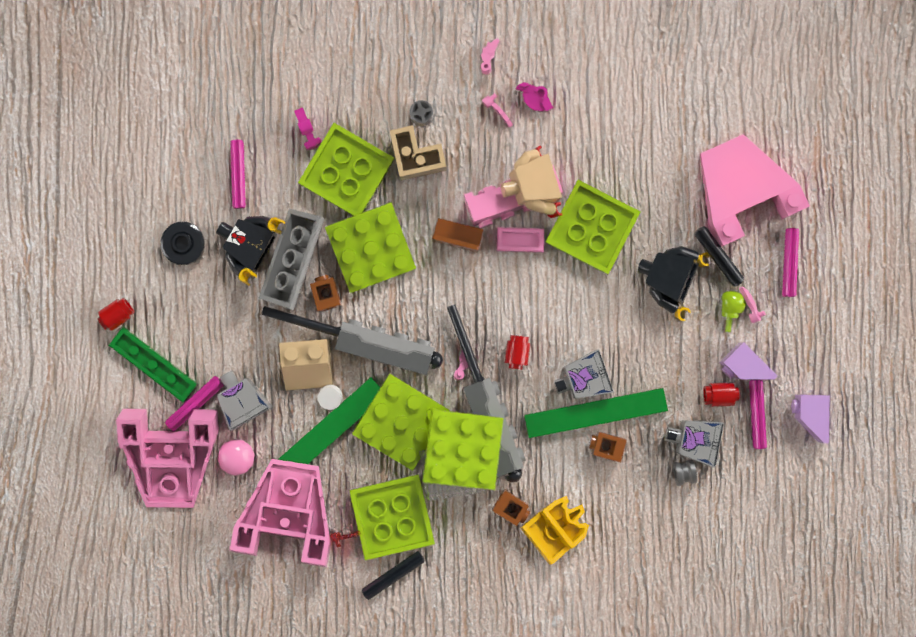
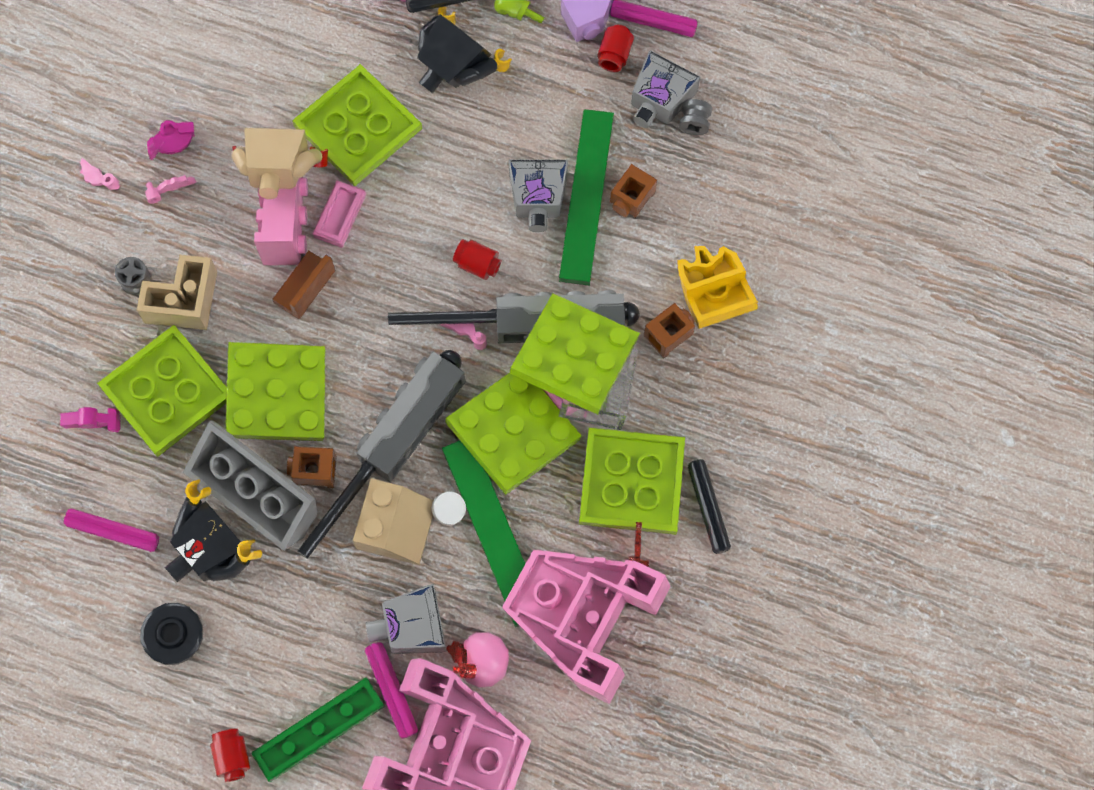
camera: 75 degrees left, 15 degrees down
(227, 443) = (459, 656): none -> clear red piece

